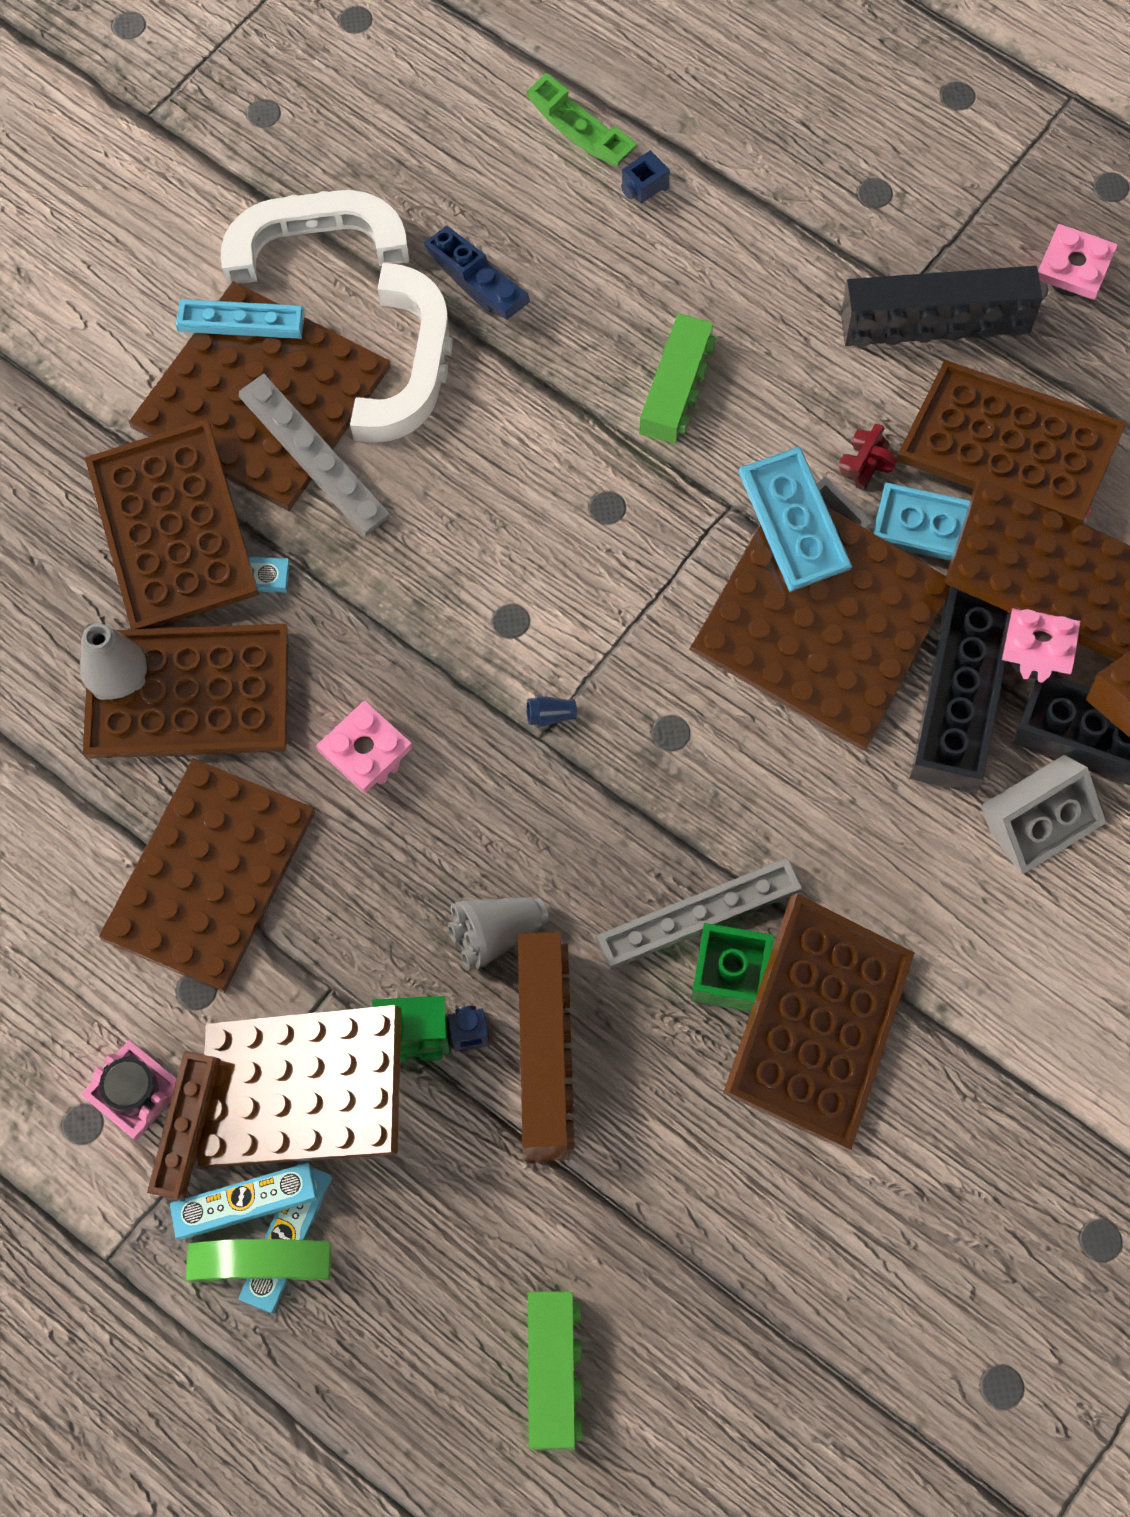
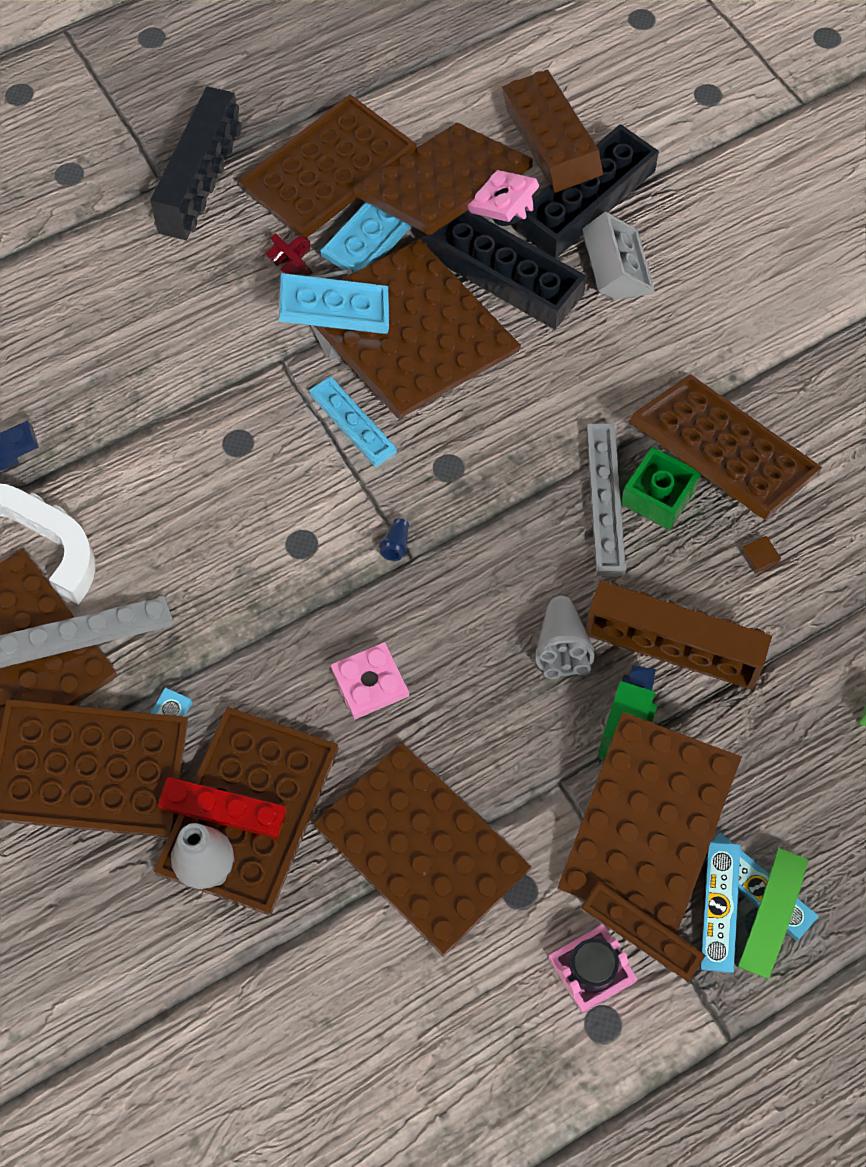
camera: 70 degrees left, 5 degrees down
(172, 664) = (222, 807): none -> red plate
(677, 379) = (157, 352): bright green brick -> none
(684, 610) = (353, 421): none -> medium azure tile
(702, 1115) = (760, 554): none -> reddish brown tile
(1076, 262) = (205, 69): bright pink piece -> none

